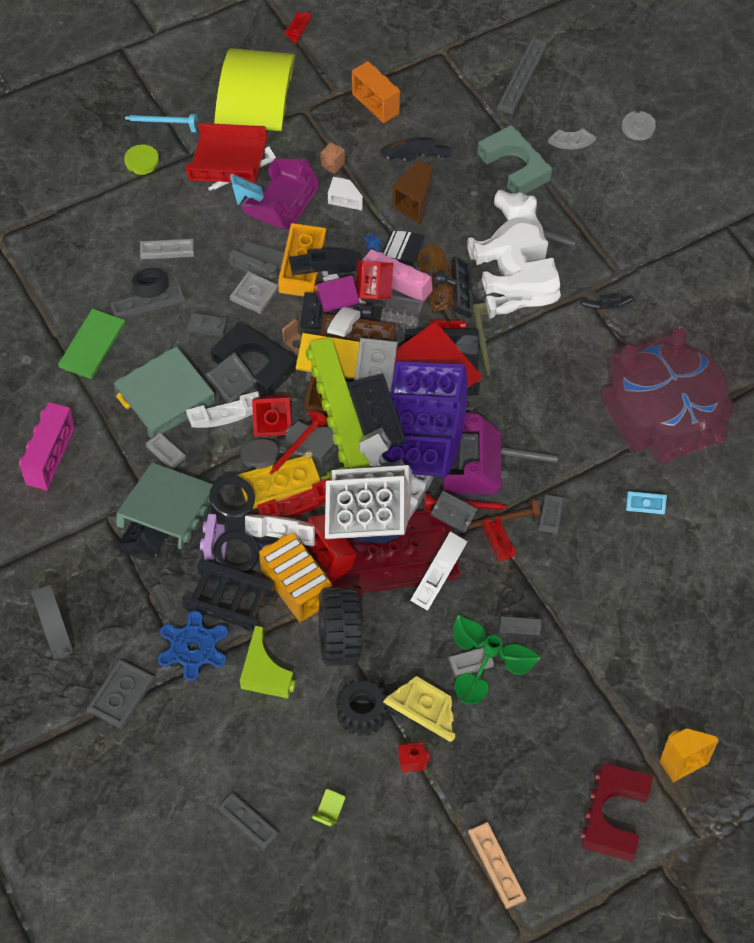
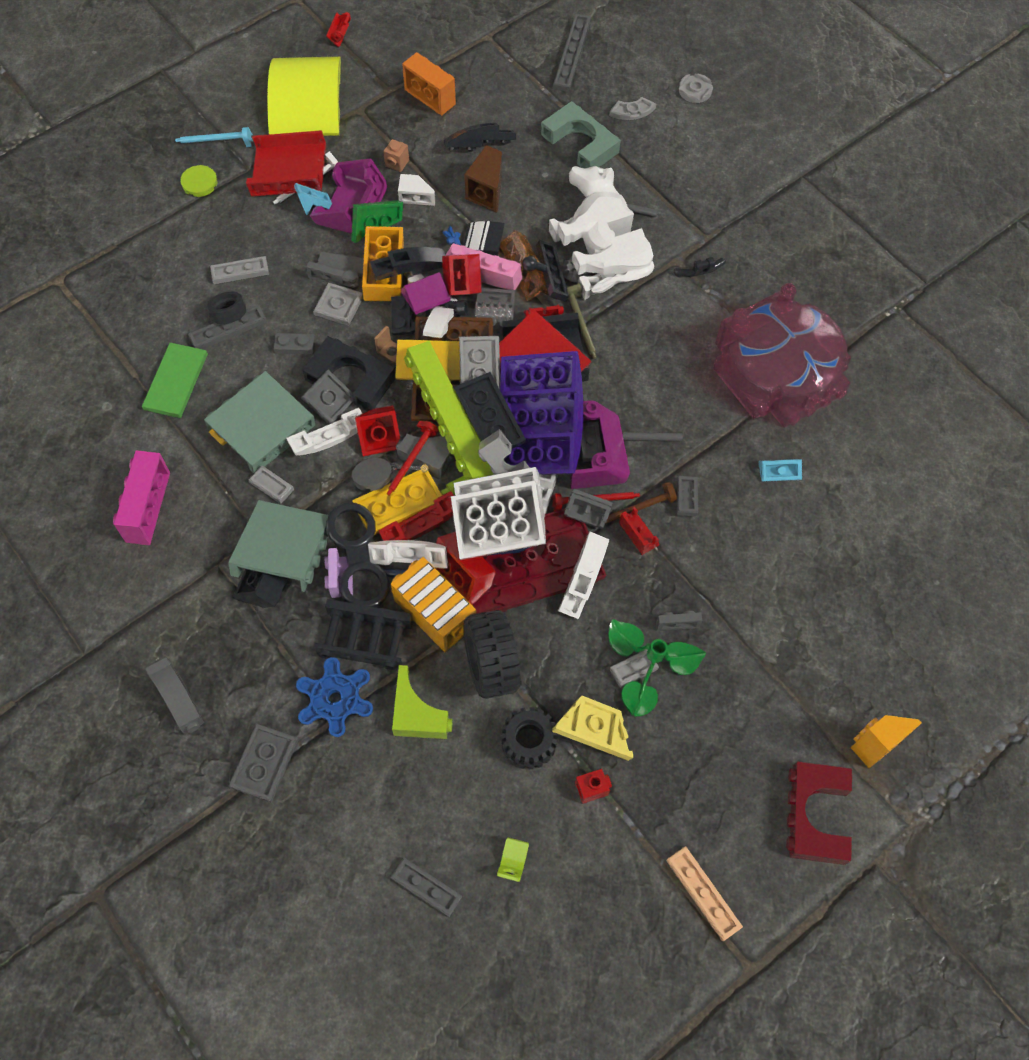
camera: 10 degrees left, 5 degrees up
(302, 213) = (375, 215): none -> green wing

